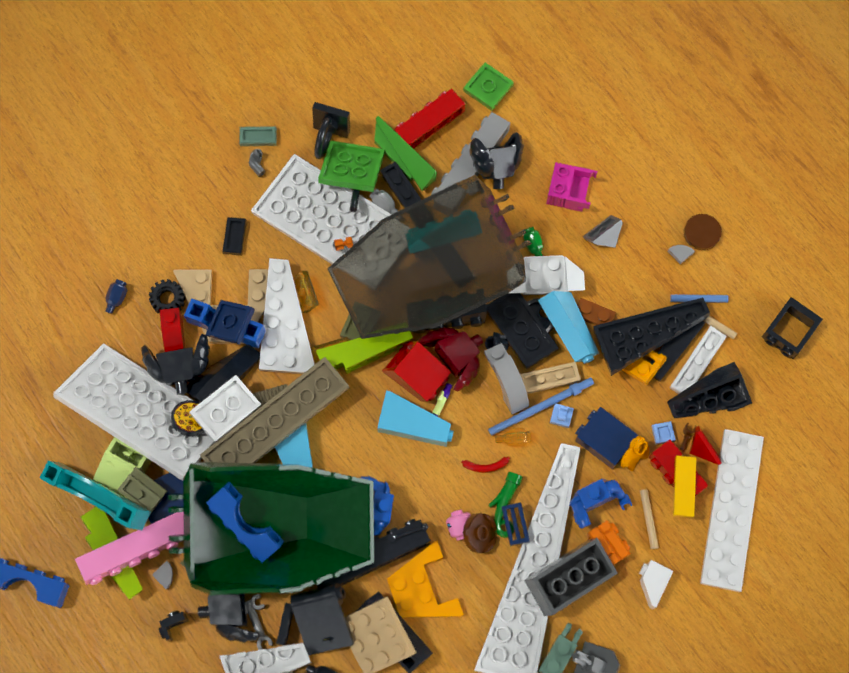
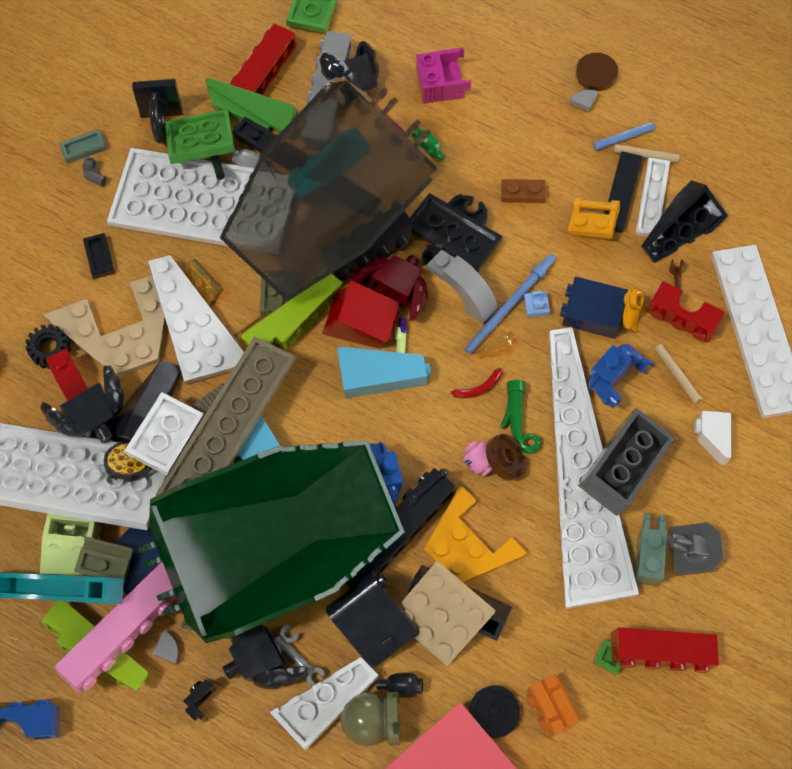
camera: 20 degrees left, 5 degrees down
(201, 315) = (100, 346): blue arch -> none
(230, 322) = (132, 338): dark blue tile -> none
(260, 541) = (266, 560): blue arch -> none
(285, 625) = (331, 645): black tile -> none
(339, 243) = (220, 218): orange piece -> none
(526, 537) = (551, 448): dark blue tile -> none
(550, 274) = (462, 169): white piece -> none
(550, 377) = (510, 268): tan plate -> none
(570, 325) = (504, 208): medium azure slope -> none
(606, 232) = (498, 107): slope -> none
(612, 544) = (660, 413): orange brick -> none
(638, 335) = (580, 192): black wing -> none
(663, 432) = (650, 280): light blue tile -> none
(684, 486) = (701, 321): yellow tile -> none
(702, 447) = (699, 277): red slope -> none
(802, 314) = (734, 111): black window -> none

